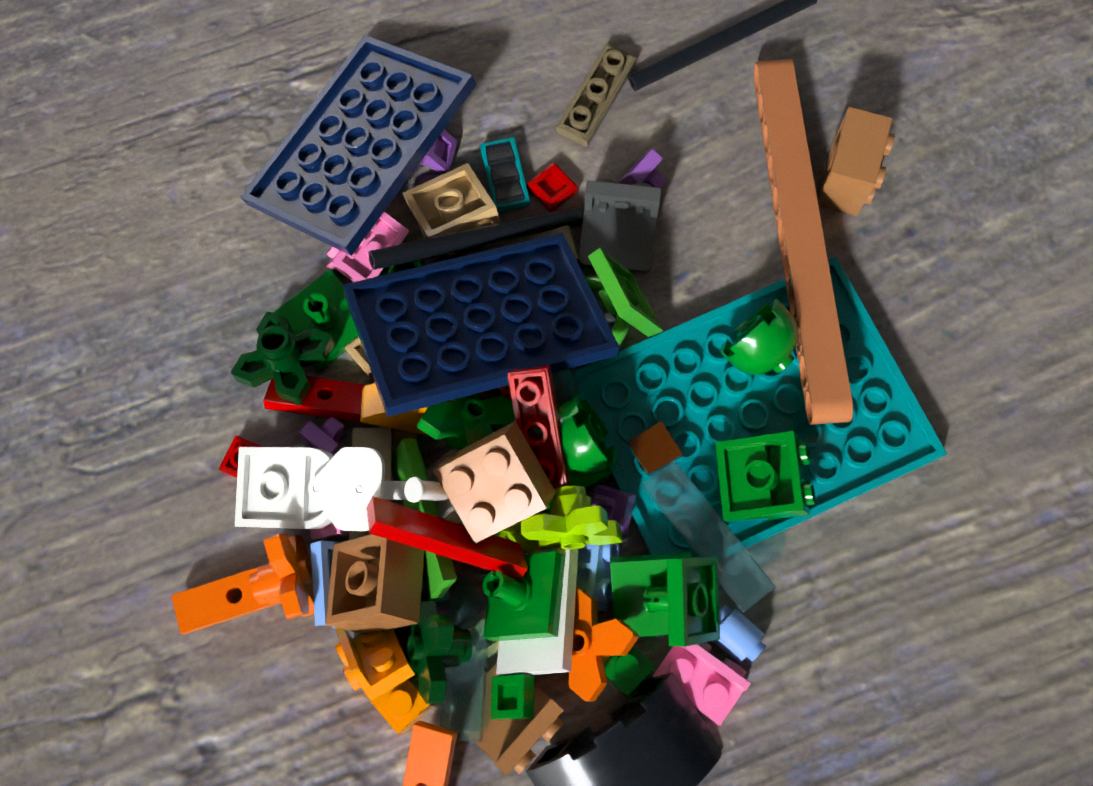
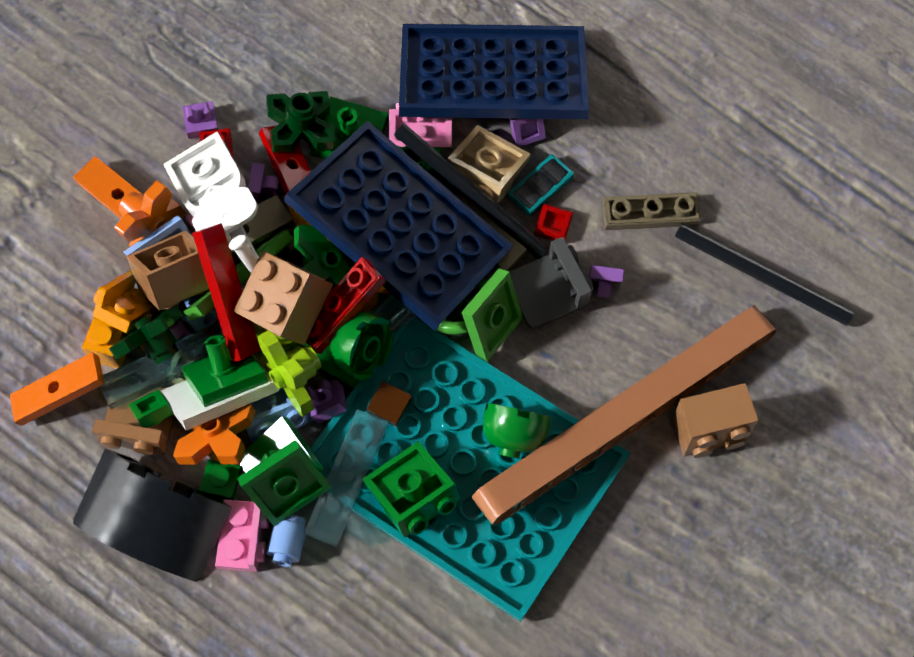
camera: 55 degrees right, 5 degrees down
(202, 460) = (199, 118): none -> medium lavender tile

